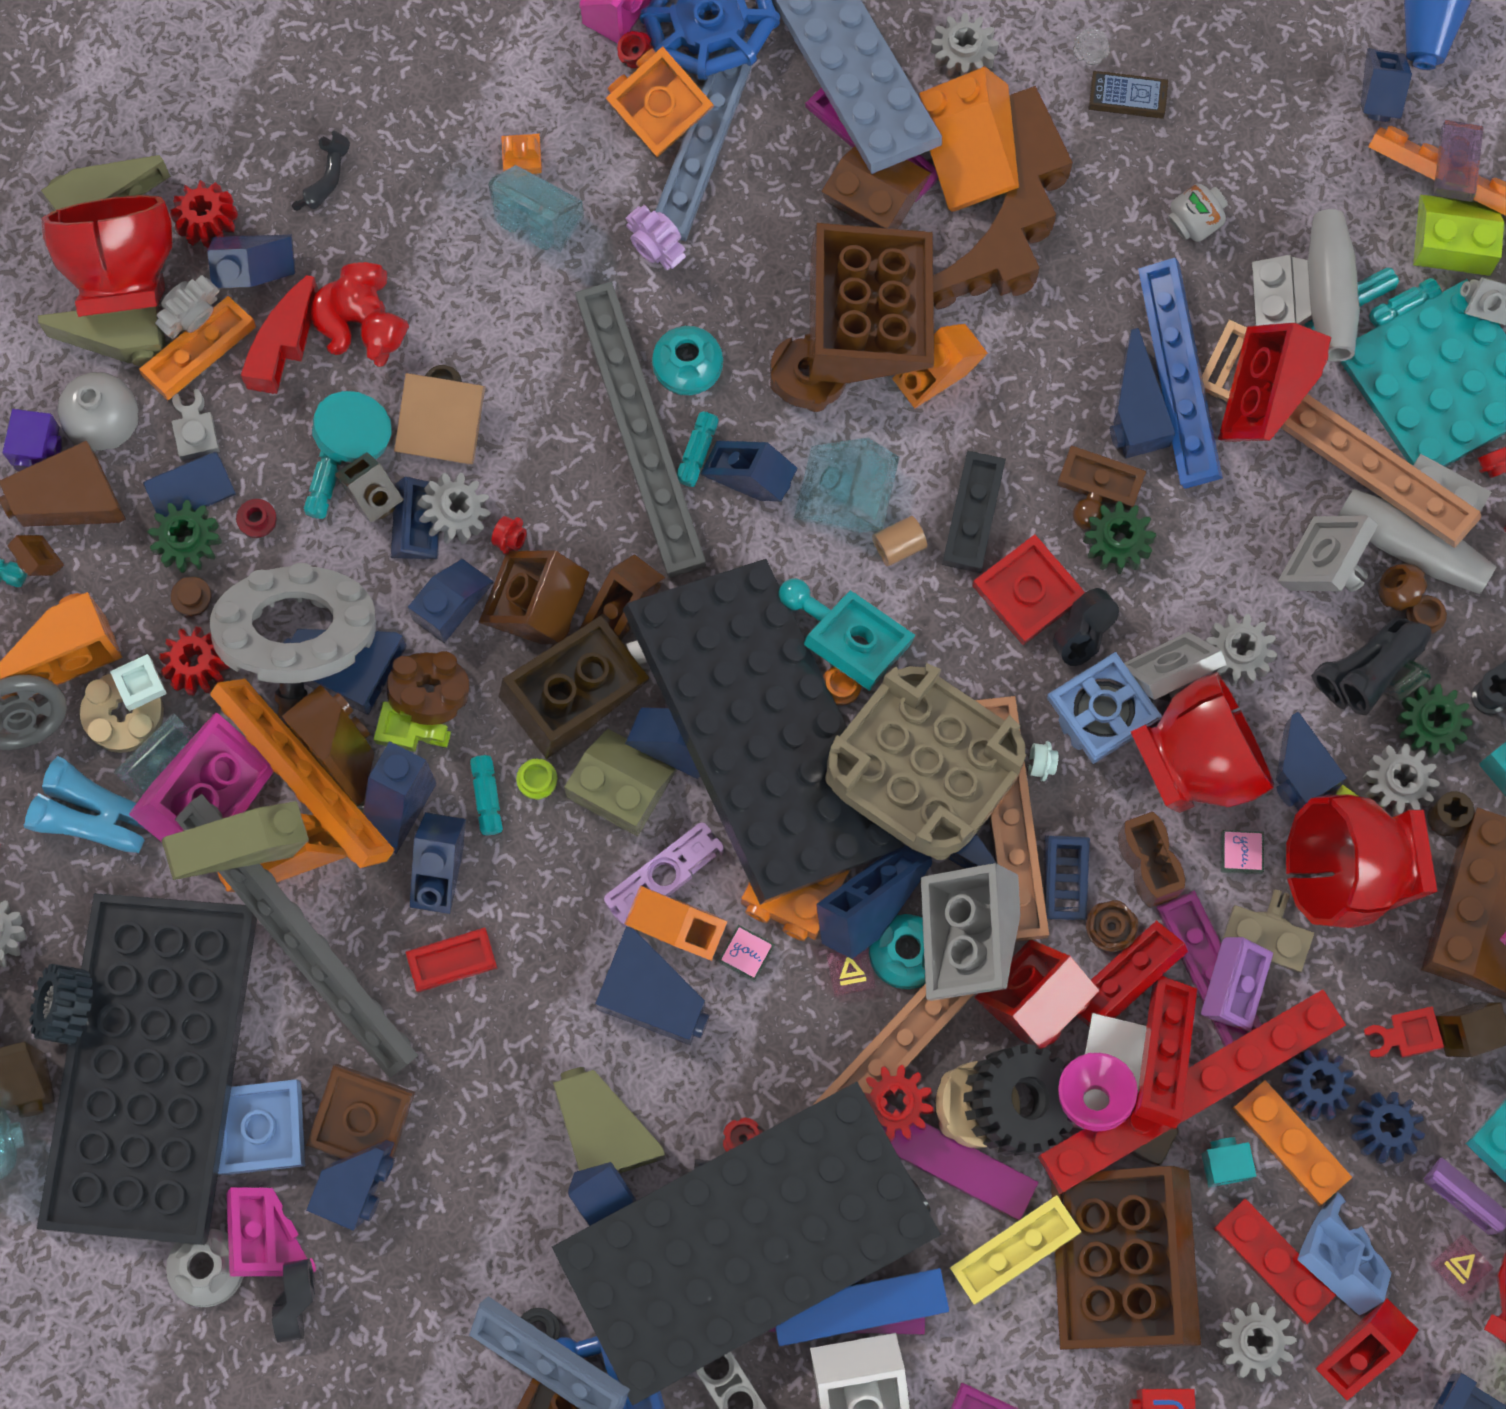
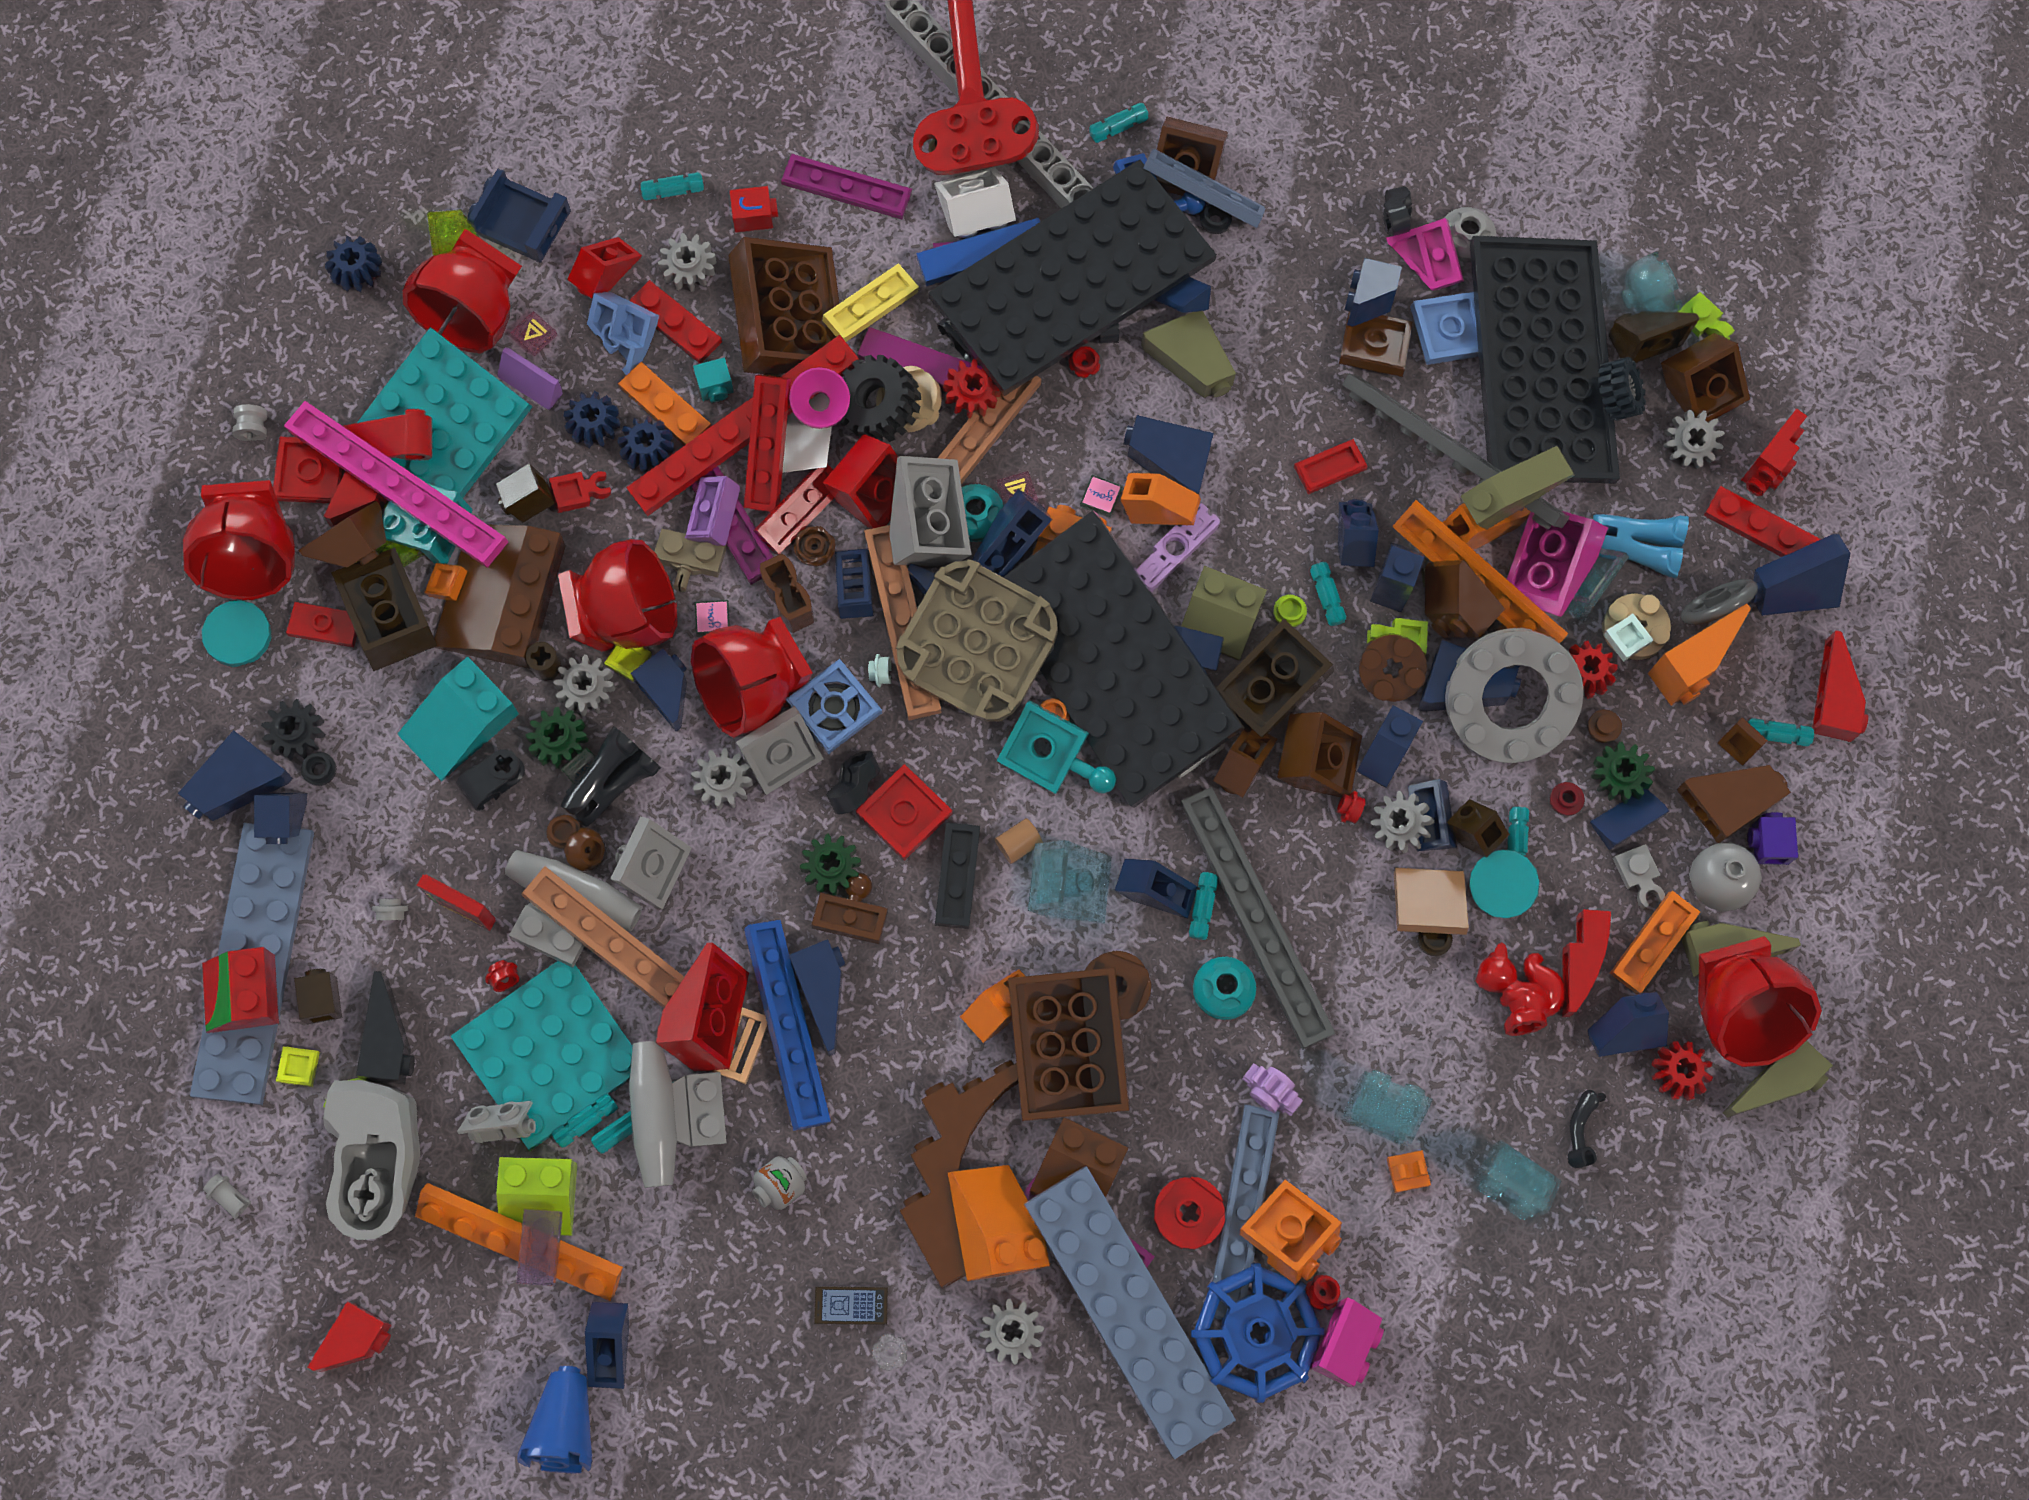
camera: 170 degrees right, 0 degrees up
(187, 306) = (1673, 965): light grey gear -> none
(409, 118) = (1517, 1181): none -> clear light blue slope
(762, 119) = (1209, 1209): none -> red plate

